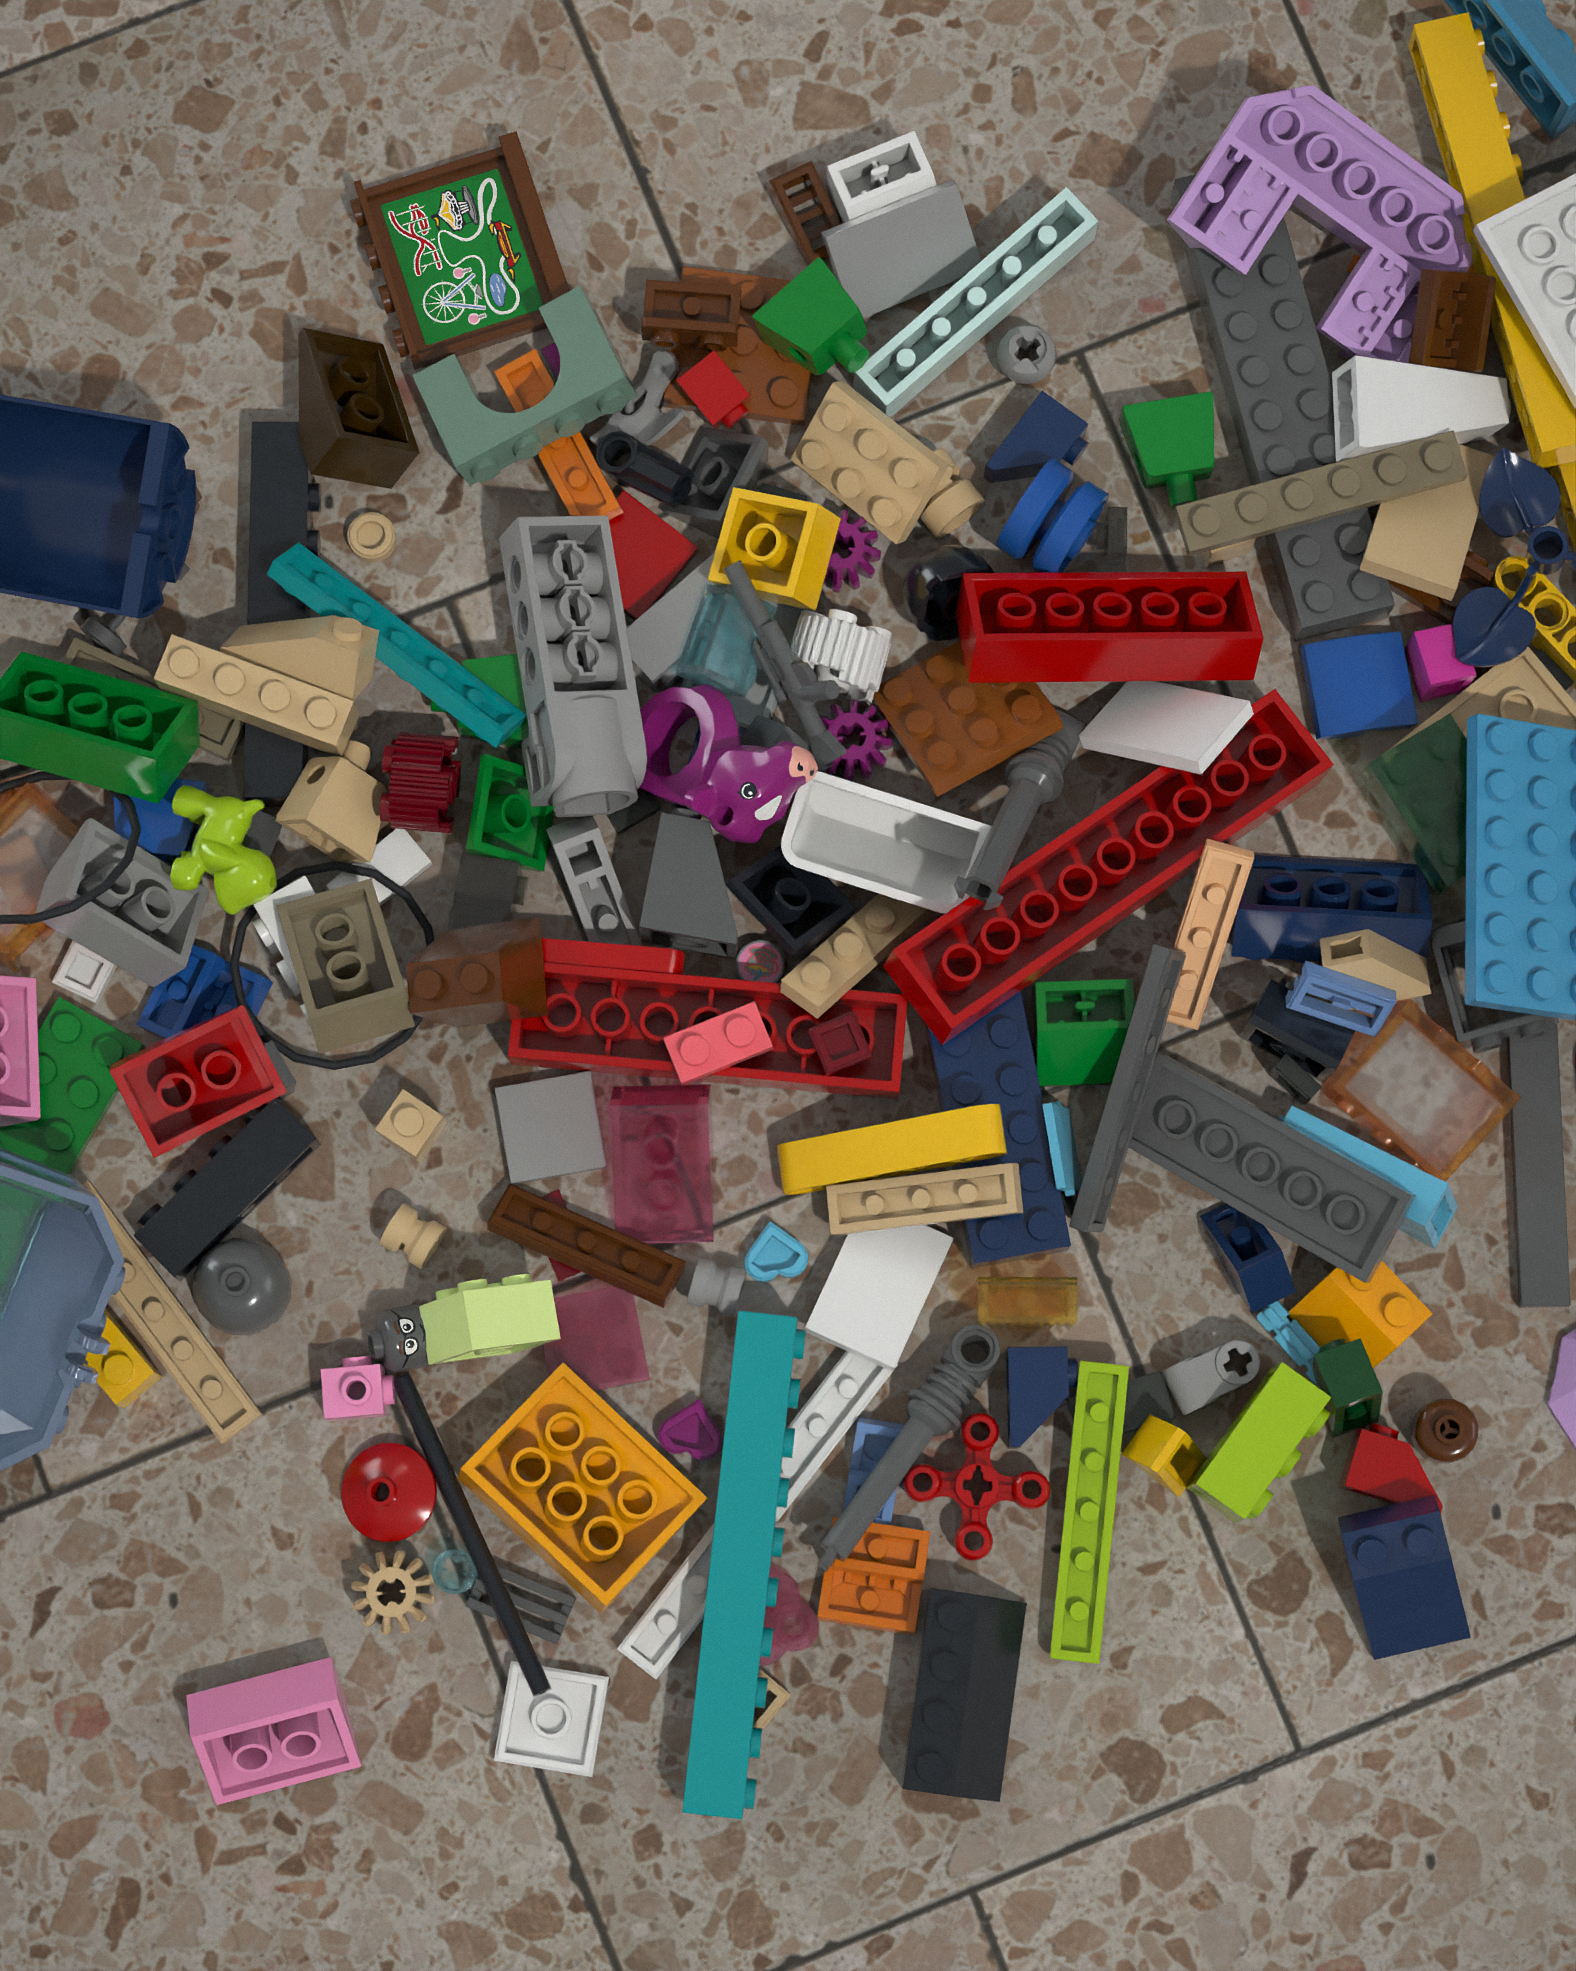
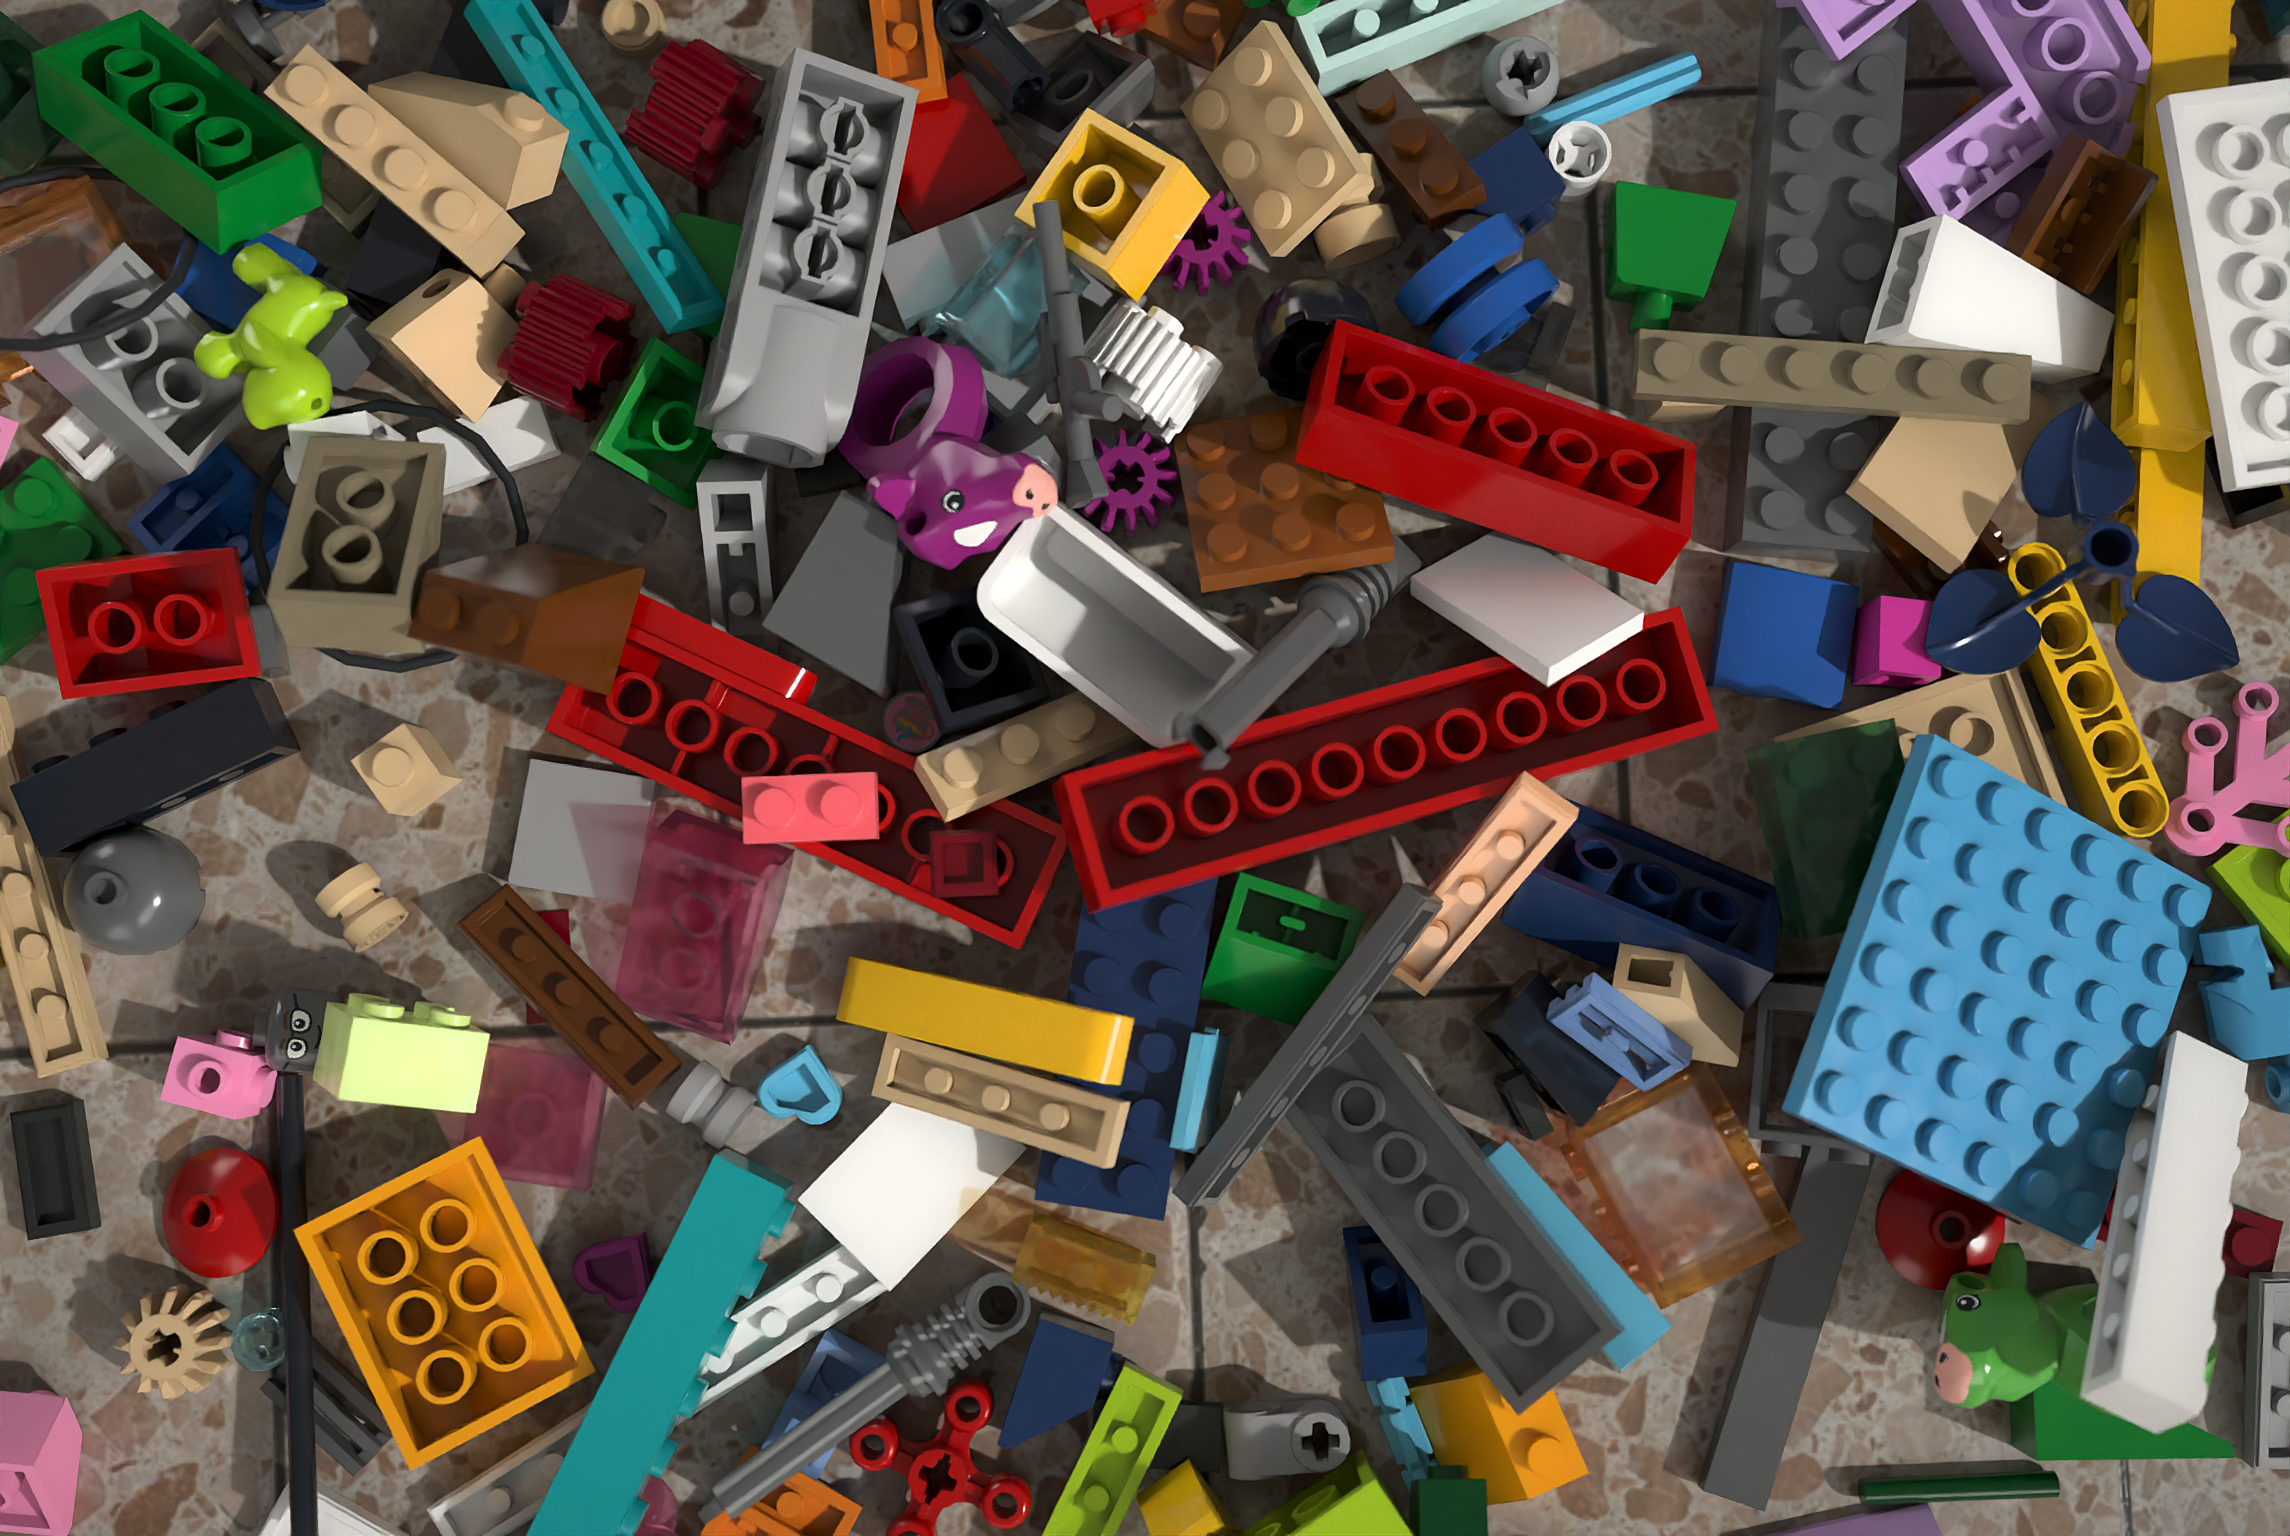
camera: 20 degrees right, 5 degrees up
(256, 1506) = (55, 1170): none -> pearl dark grey tile
(451, 585) = (697, 111): none -> dark red brick
(968, 435) = (1410, 150): none -> reddish brown plate
(1091, 392) = (1583, 150): none -> white wheel
(1098, 347) = (1616, 96): none -> medium azure axle

